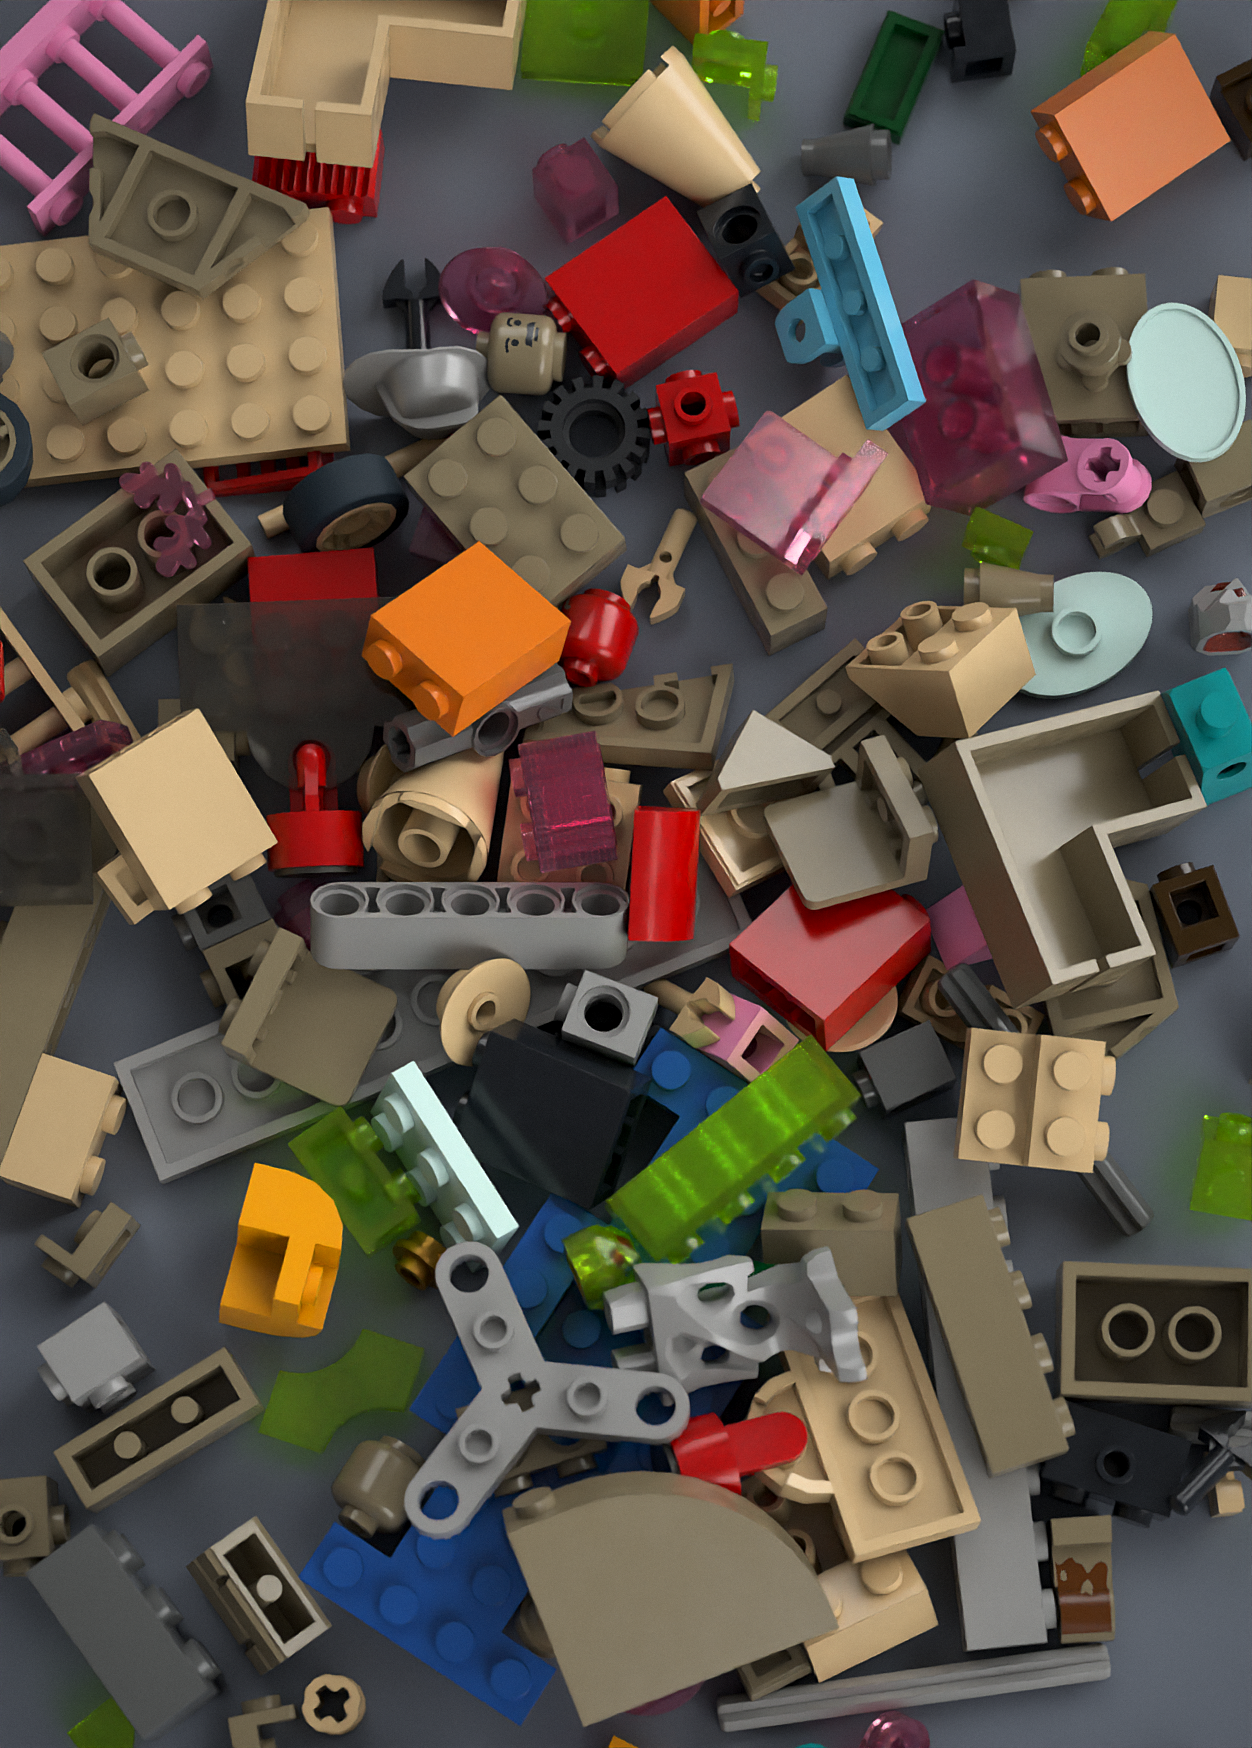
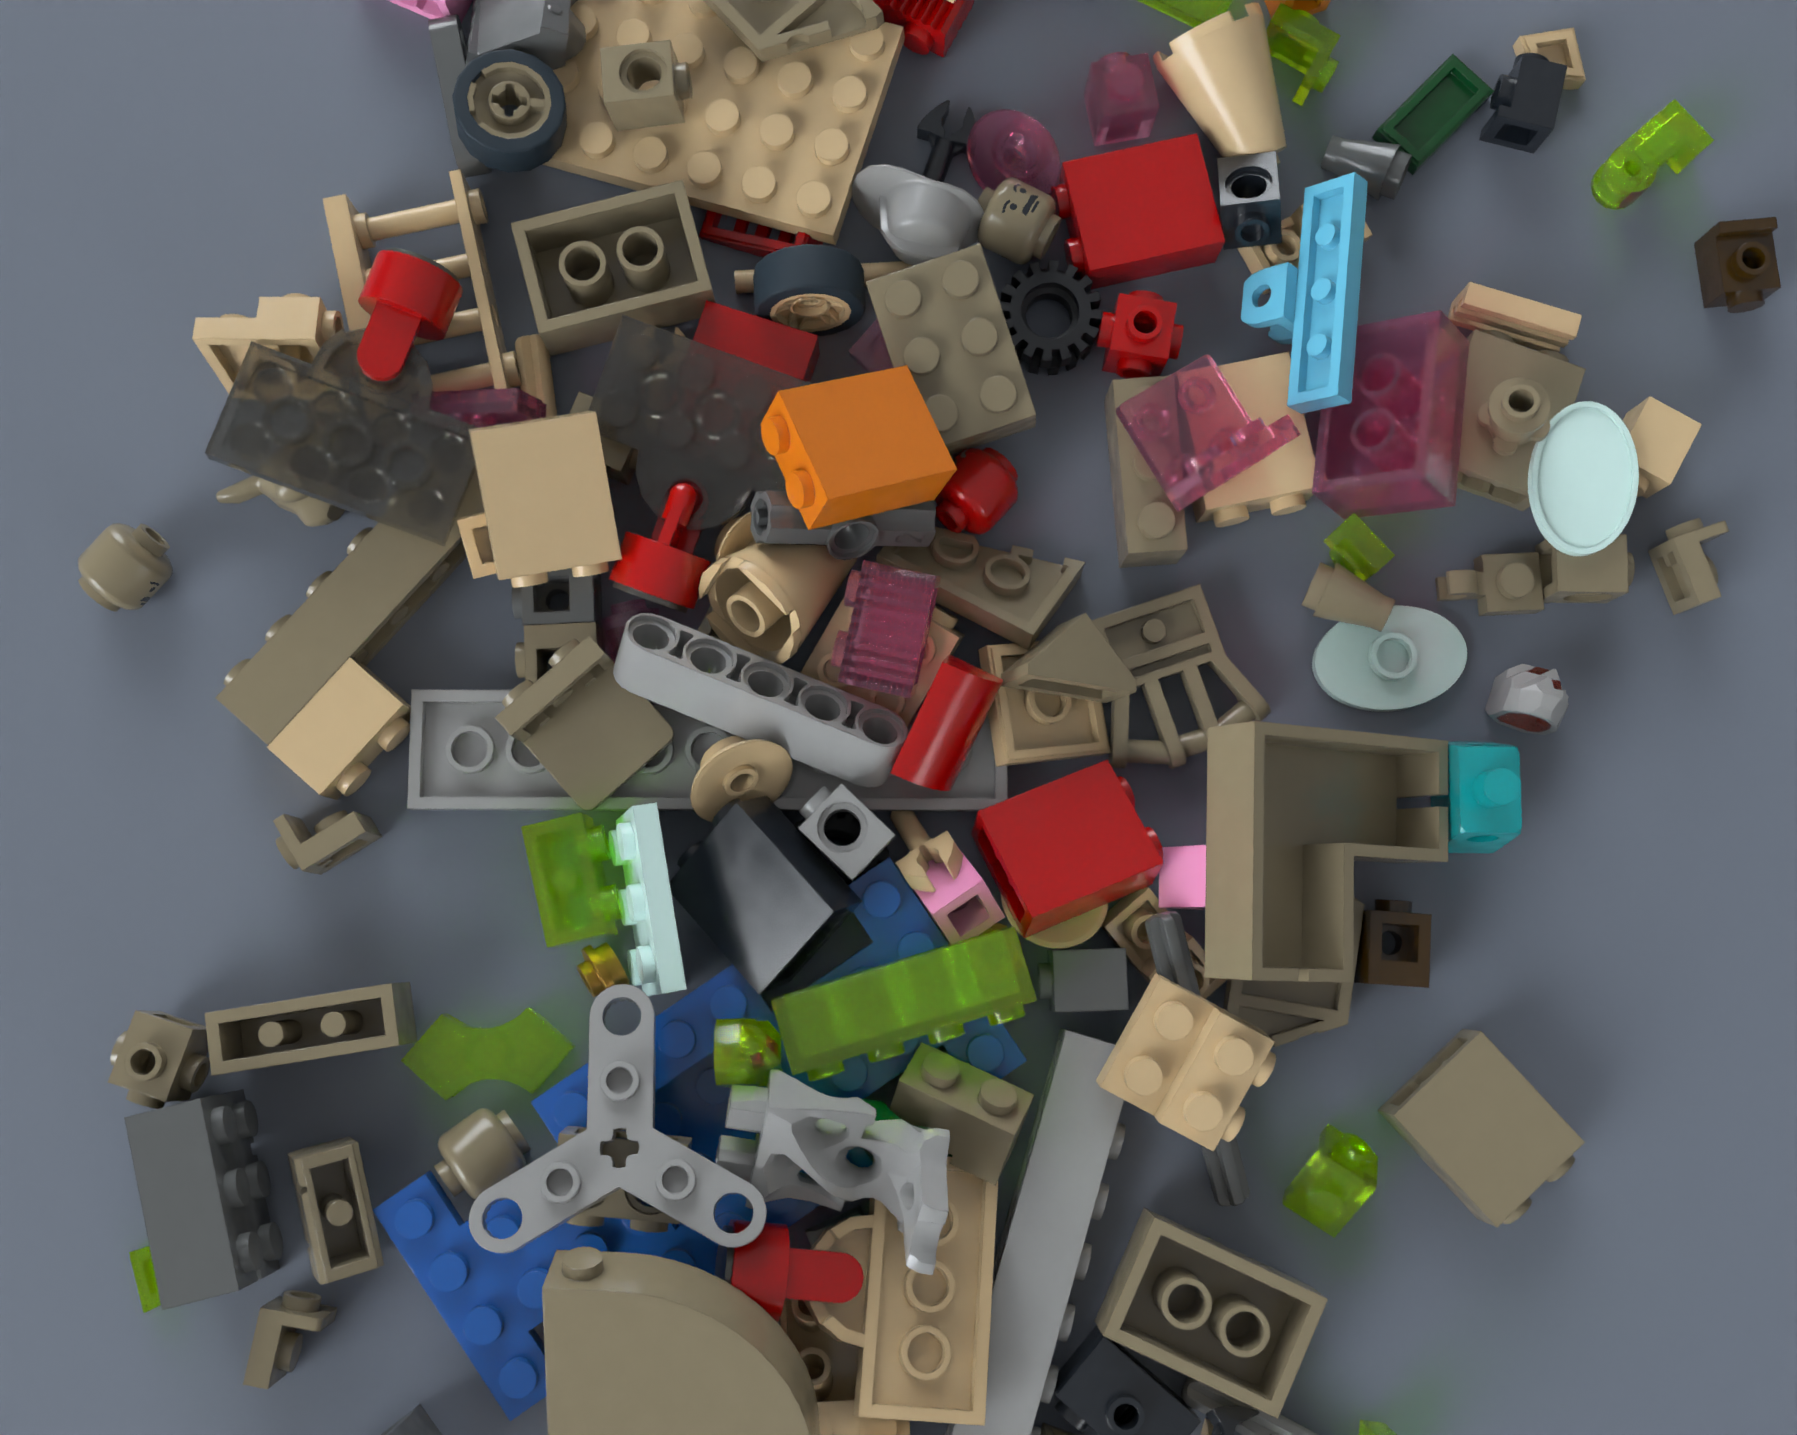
camera: 15 degrees right, 5 degrees up
(94, 1361) = (279, 946): light grey brick -> none
(187, 528) = (661, 252): clear pink animal -> none
(283, 1256) = (479, 920): light orange brick -> none
(313, 1702) = (358, 1345): tan bush -> none
(662, 569) = (1058, 456): tan bar -> none
(855, 834) = (1130, 759): dark tan bracket -> none
(945, 666) = (1268, 643): tan slope -> none
(987, 1335) = (1060, 1260): dark tan brick -> none
(1056, 249) = (1523, 319): none -> tan tile
(1094, 479) = (1463, 531): bright pink piece -> none
(1129, 126) = (1625, 234): orange brick -> none

